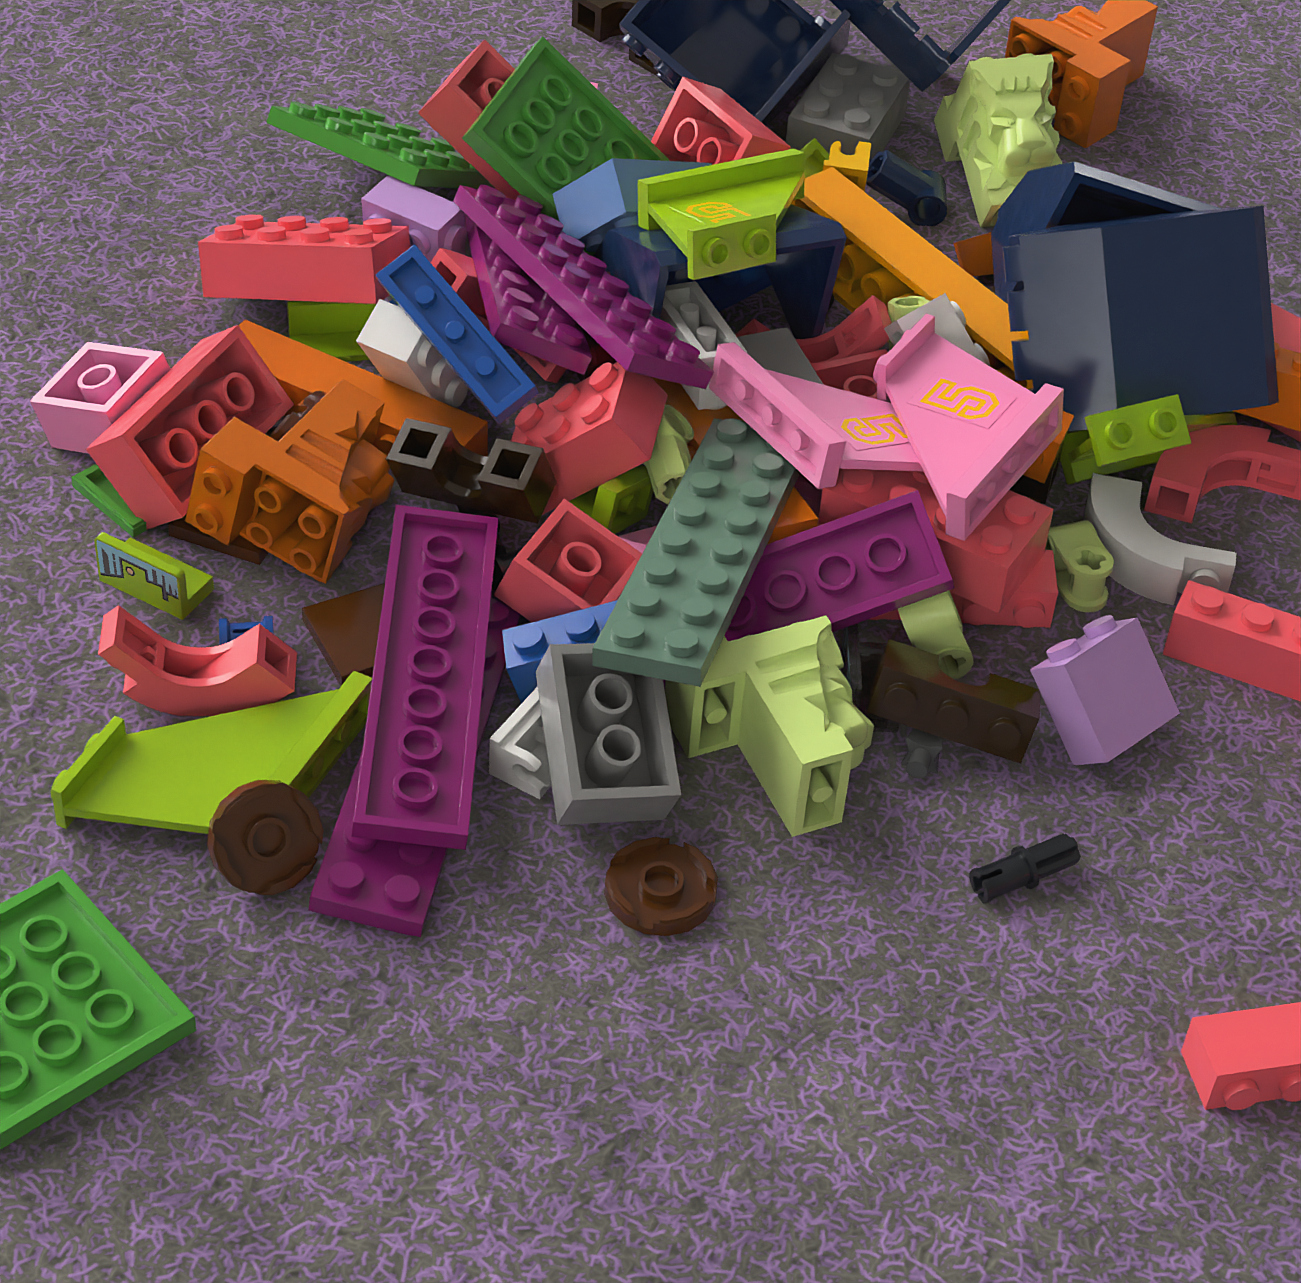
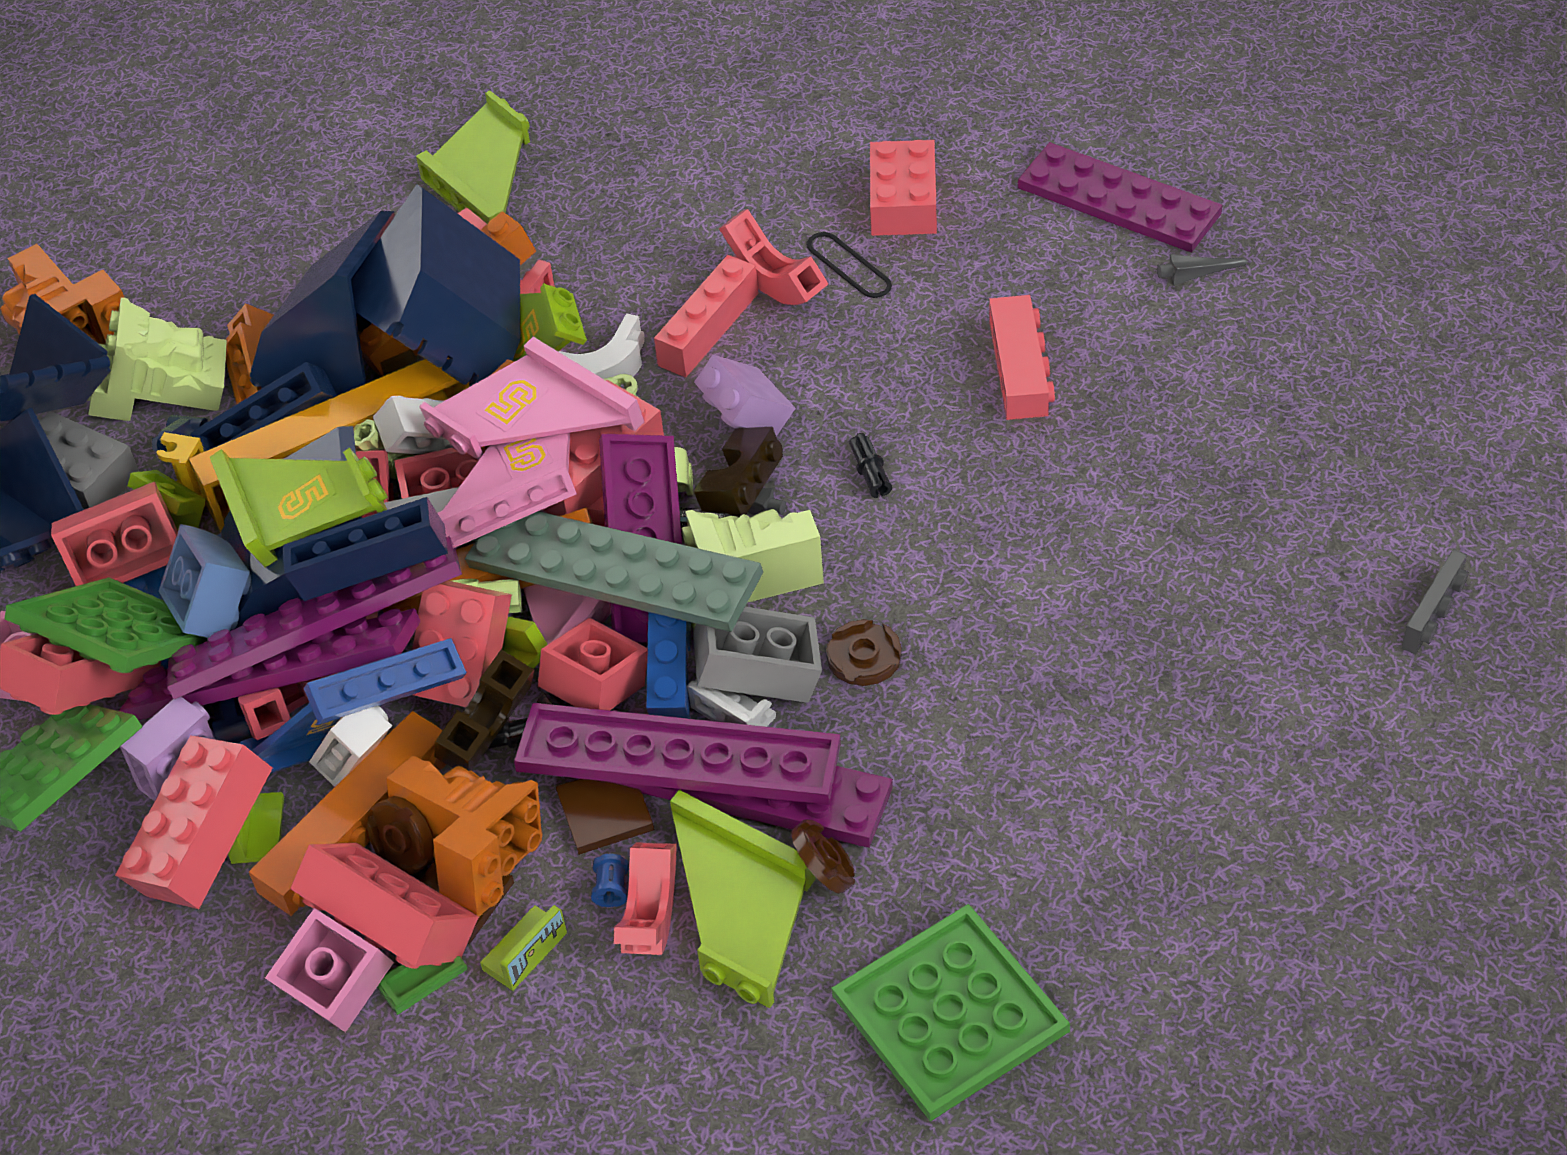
camera: 75 degrees left, 5 degrees up
(638, 271) = (365, 549): none -> dark blue brick
(949, 226) = (282, 398): none -> dark blue brick

